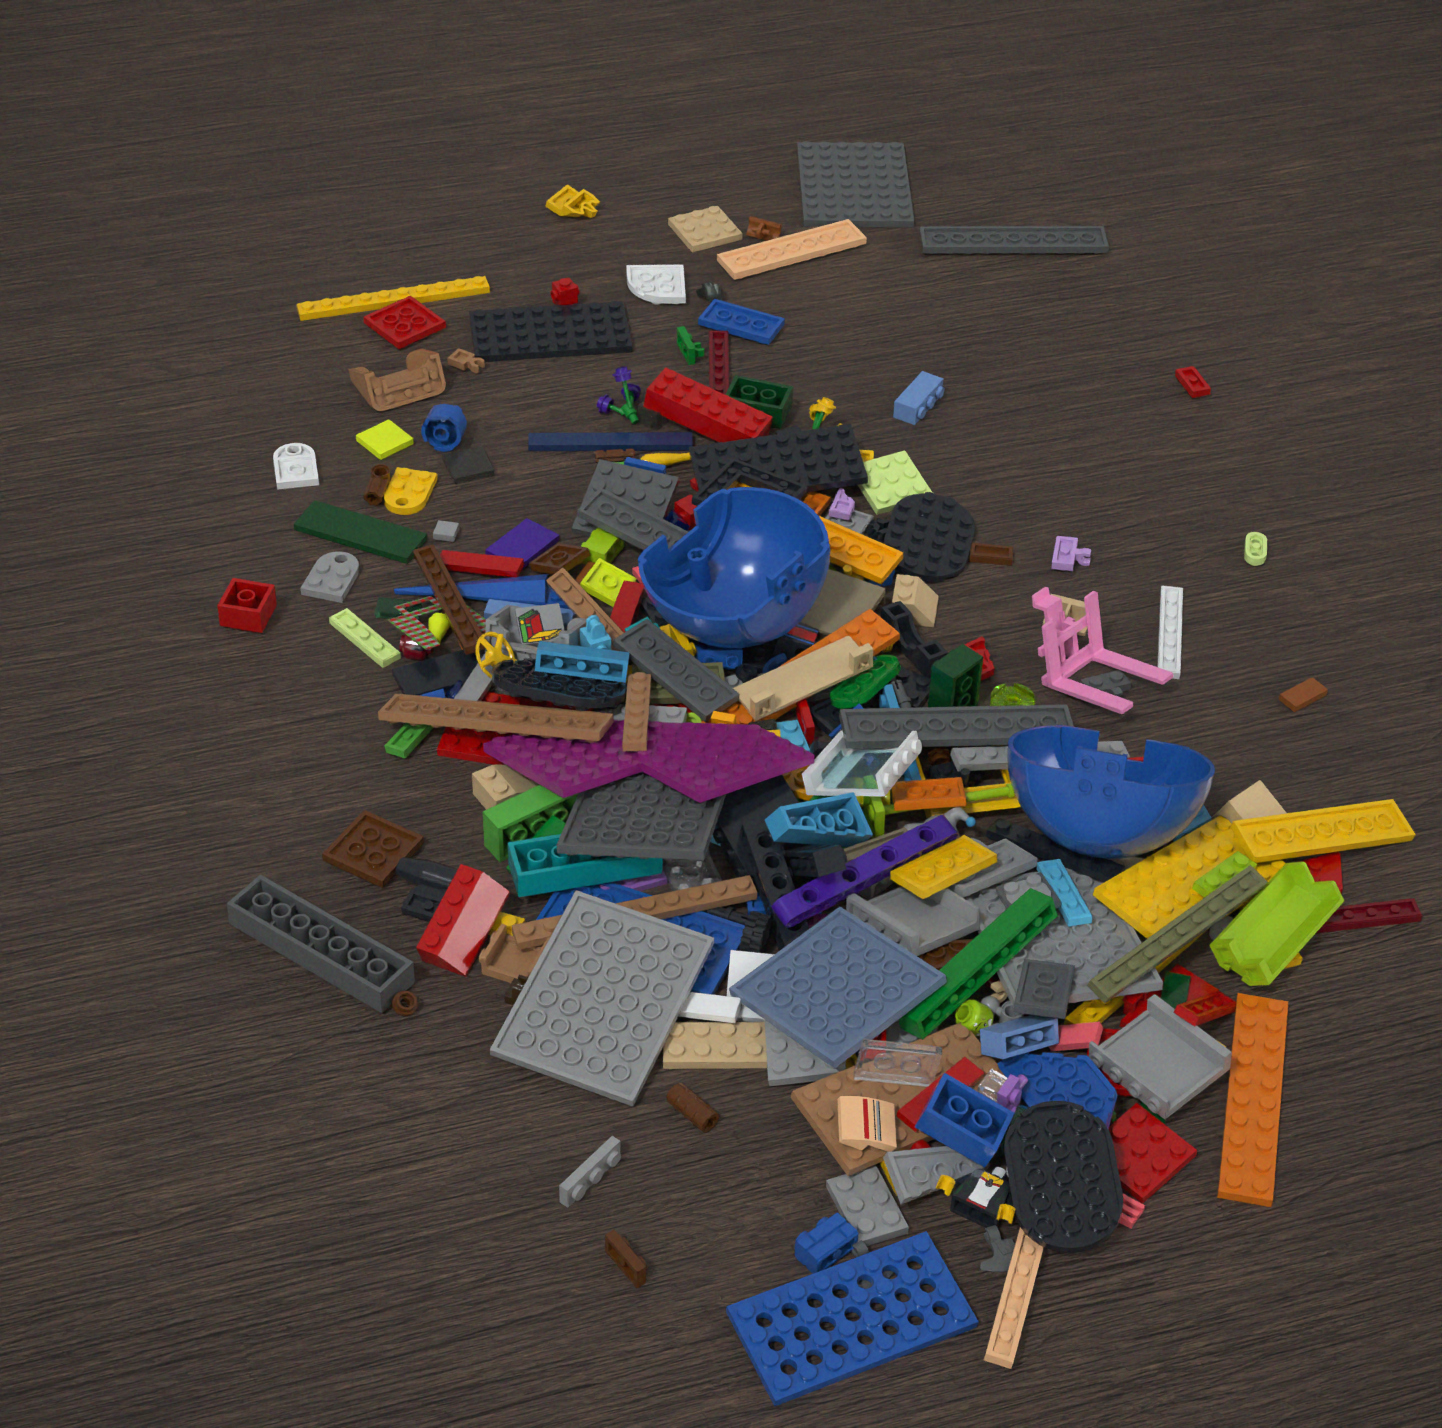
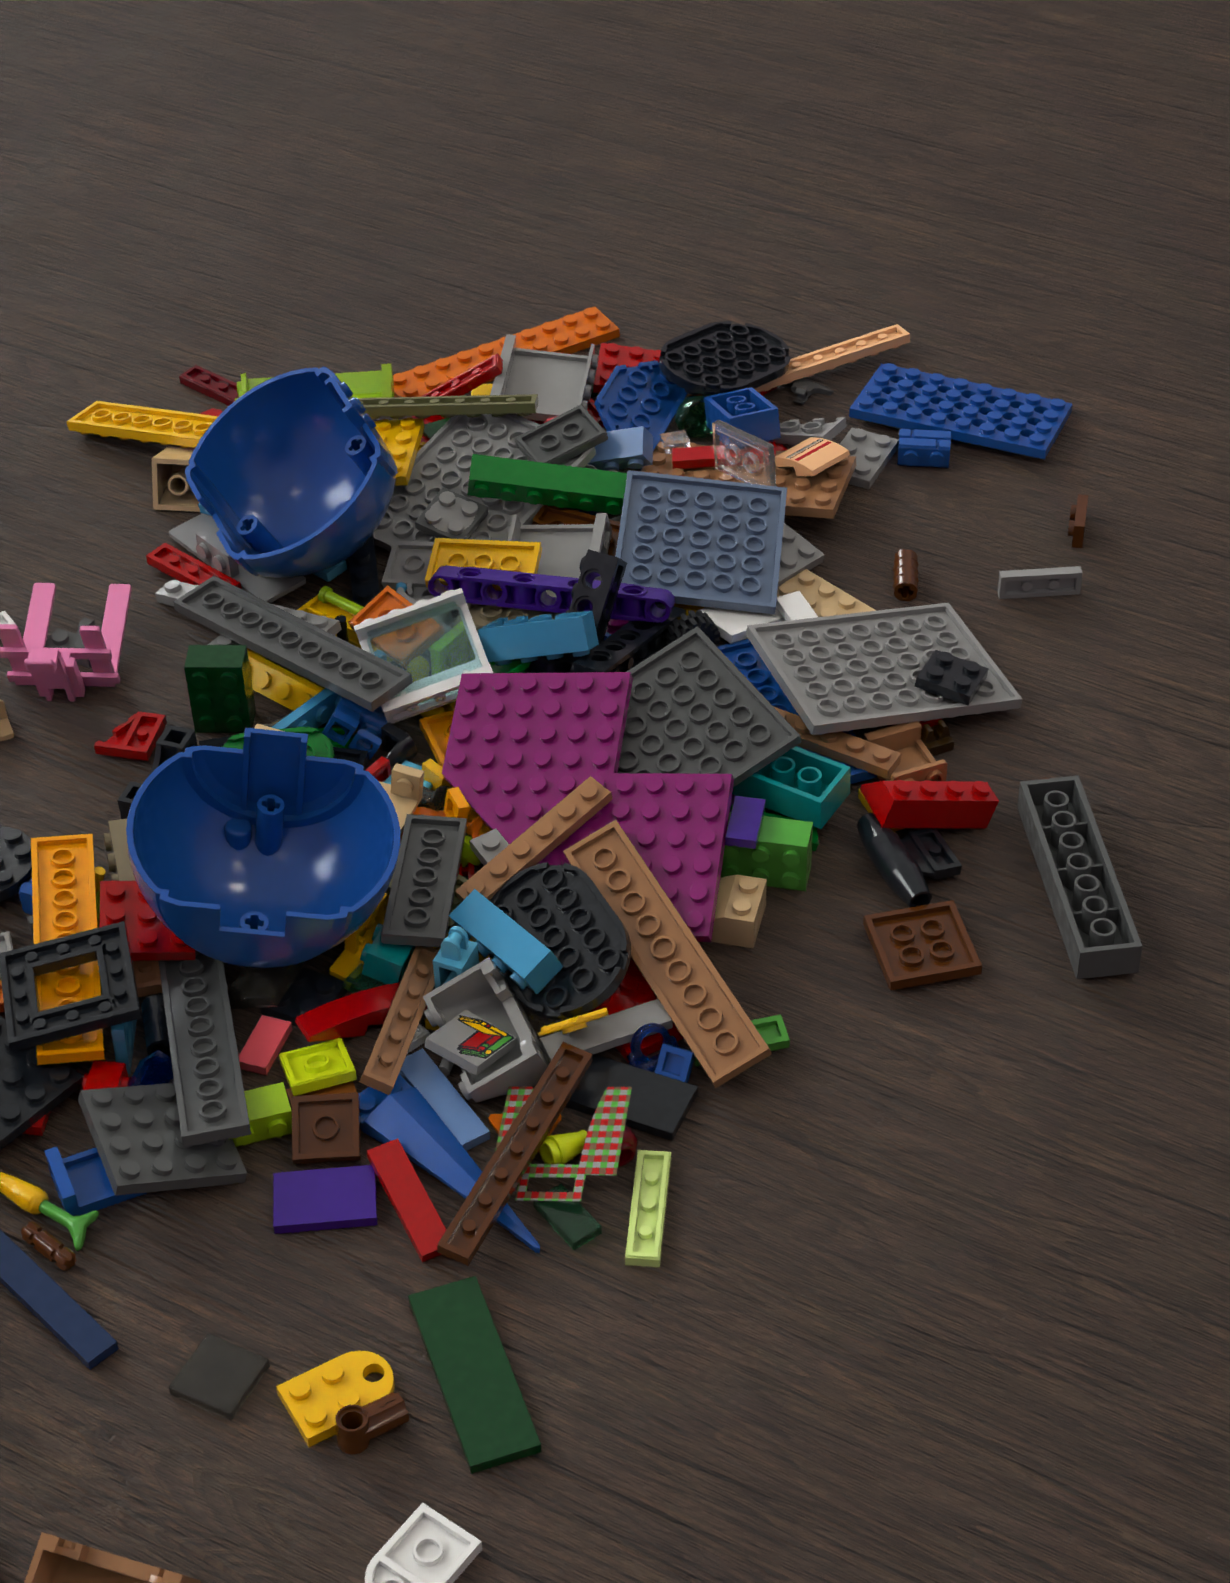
camera: 130 degrees left, 0 degrees up
(247, 605) = (744, 1331): red brick -> none
(331, 579) = (585, 1326): light grey plate -> none
(384, 439) = (255, 1514): neon yellow tile -> none
(444, 427) = (181, 1435): blue brick -> none
(446, 531) = (378, 1289): light grey tile -> none
(533, 794) = (745, 822): none -> dark purple tile
(545, 1014) = (951, 677): none -> black plate
(917, 598) = (87, 819): tan slope -> none
(980, 1196) = (786, 398): torso -> none
(1005, 695) = (159, 685): clear neon green plate -> none
(1010, 1092) = (683, 417): medium lavender plate -> none
(1072, 905) = (402, 523): medium azure tile -> none

